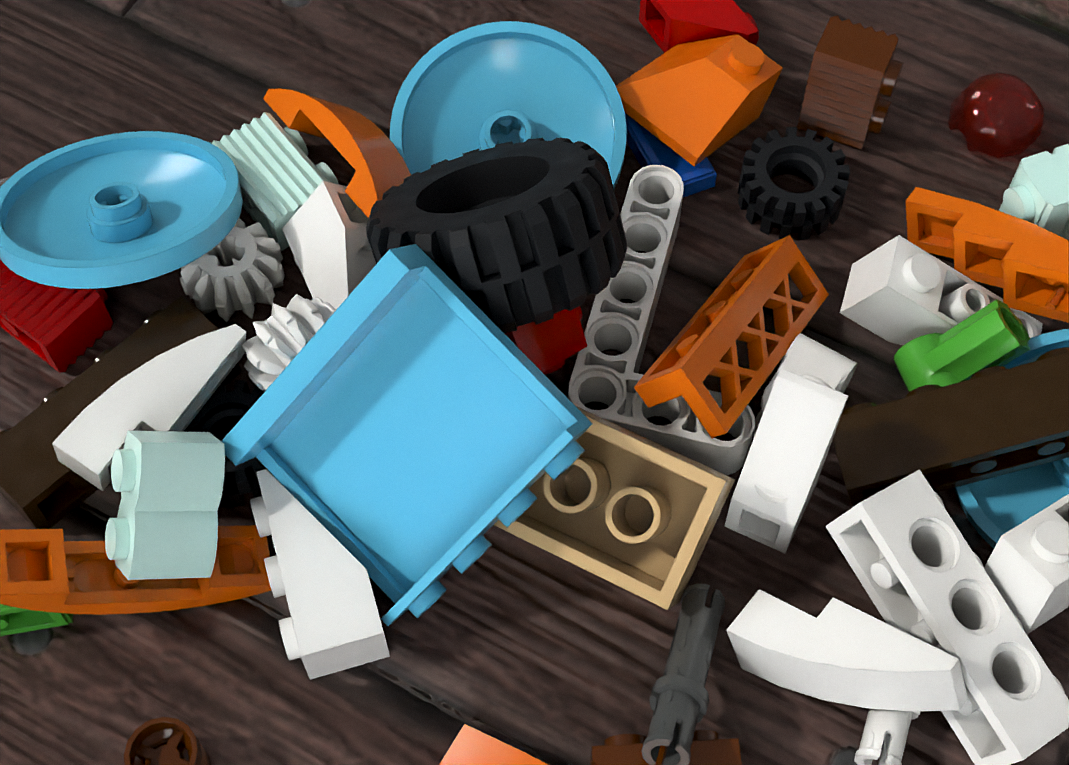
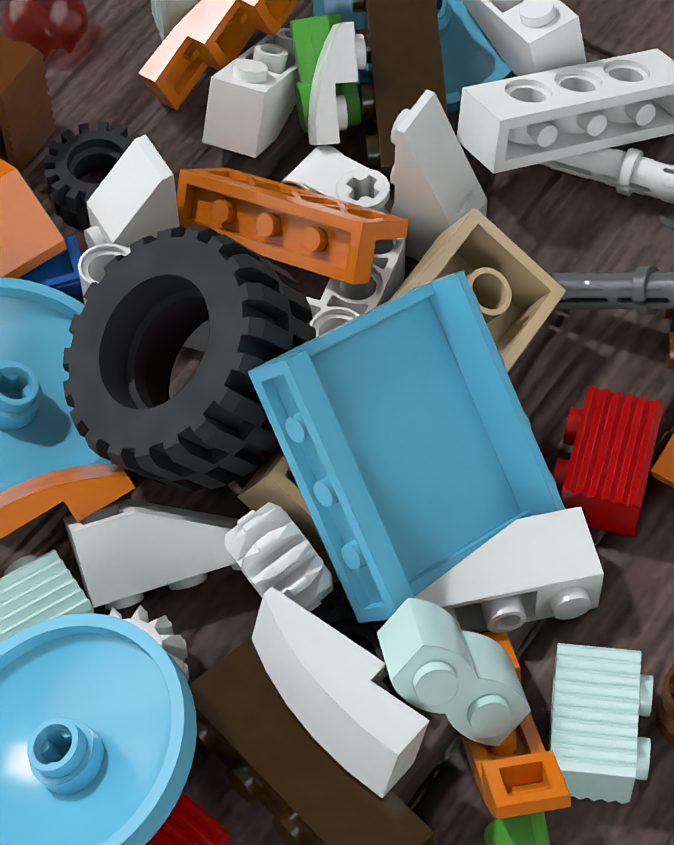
camera: 85 degrees left, 5 degrees down
(152, 664) = (596, 720): none -> light aqua brick
(467, 675) = (609, 458): none -> red brick
(733, 210) = (133, 198): none -> white slope
(844, 657) = (605, 183): white slope -> none
(937, 349) = (338, 63): none -> white slope

